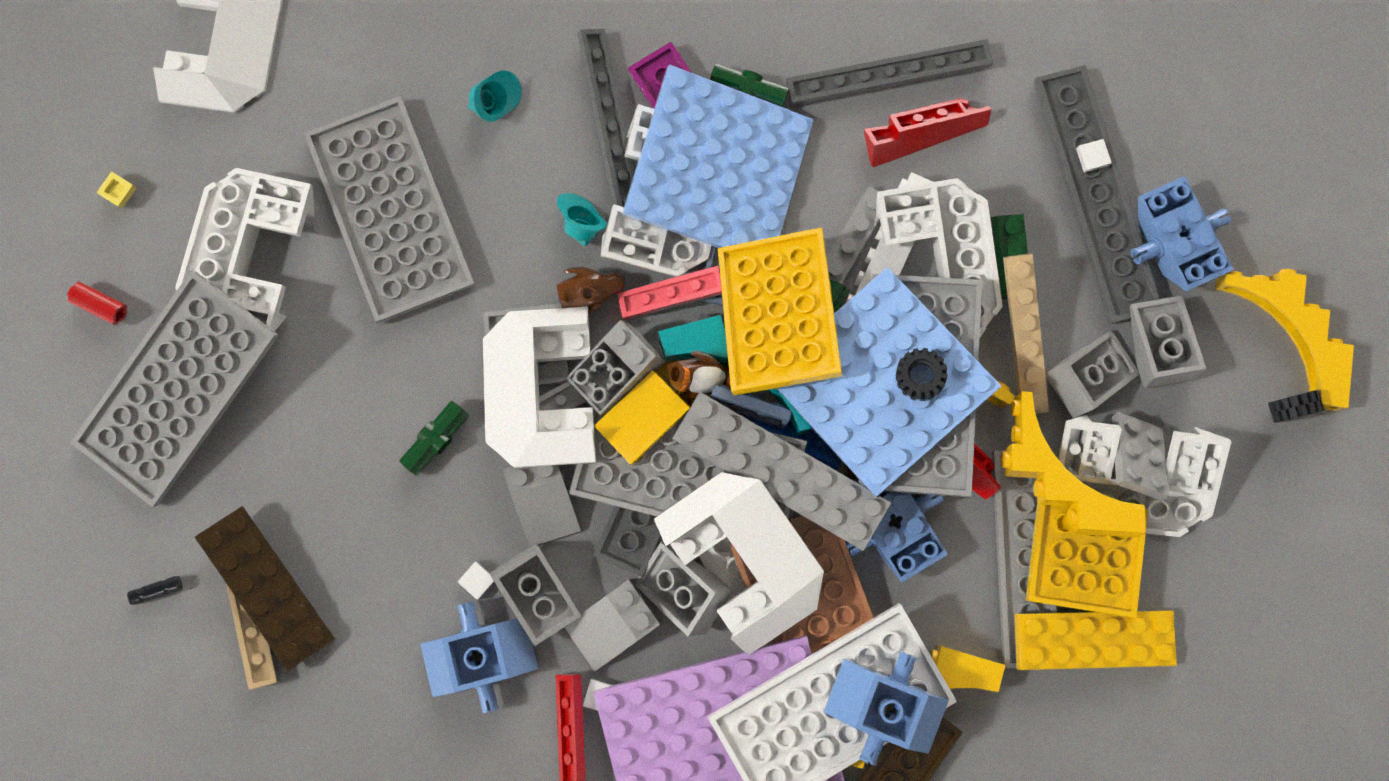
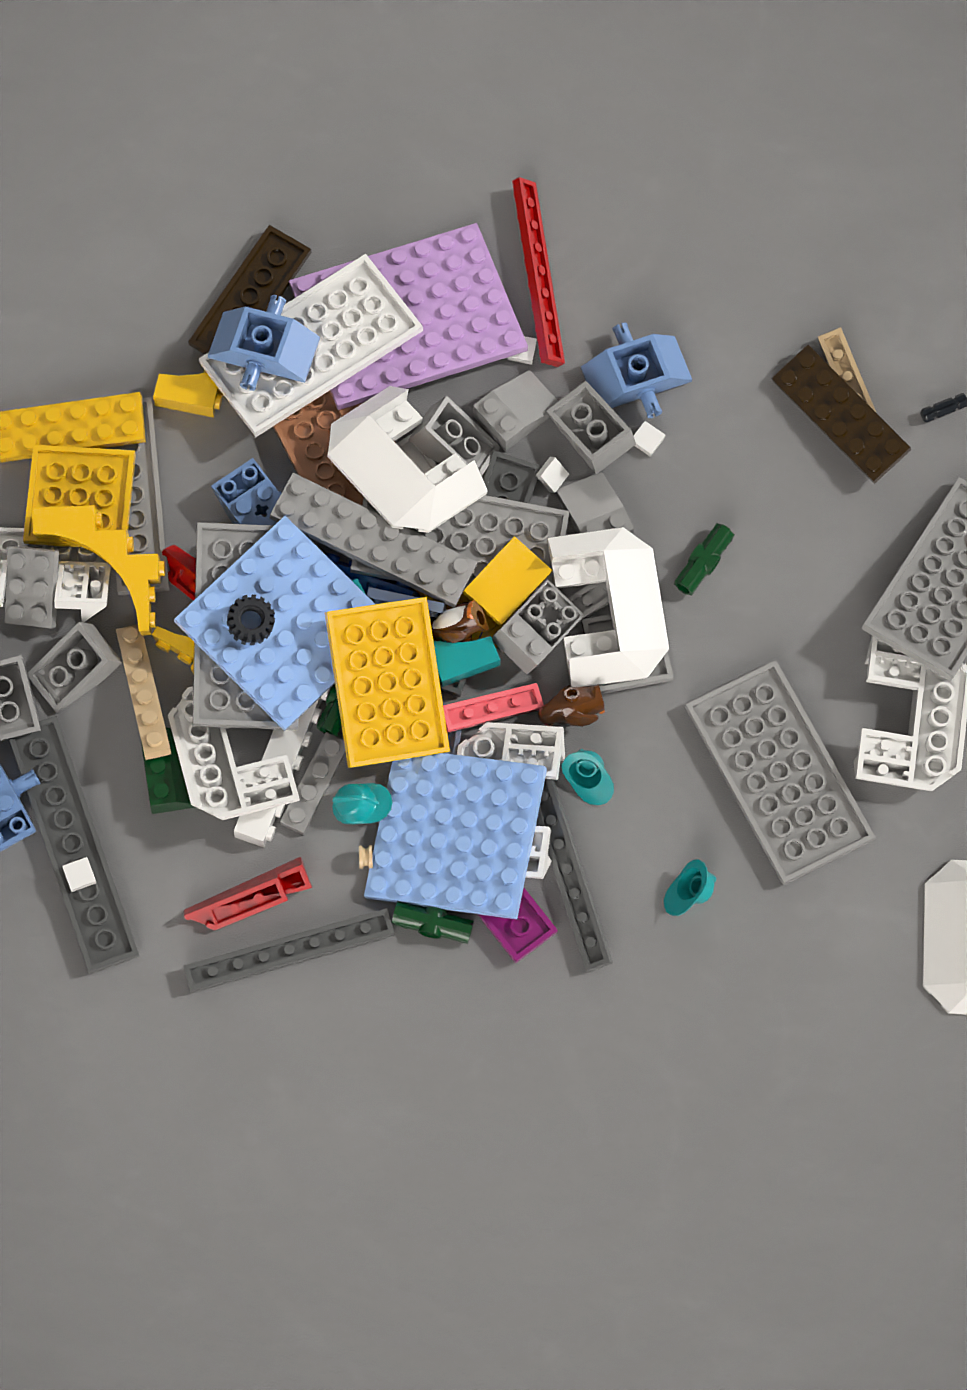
camera: 170 degrees right, 10 degrees down
(582, 545) = (552, 474): none -> white tile
(809, 156) = (365, 857): none -> tan bush
(809, 208) = (361, 803): none -> teal piece

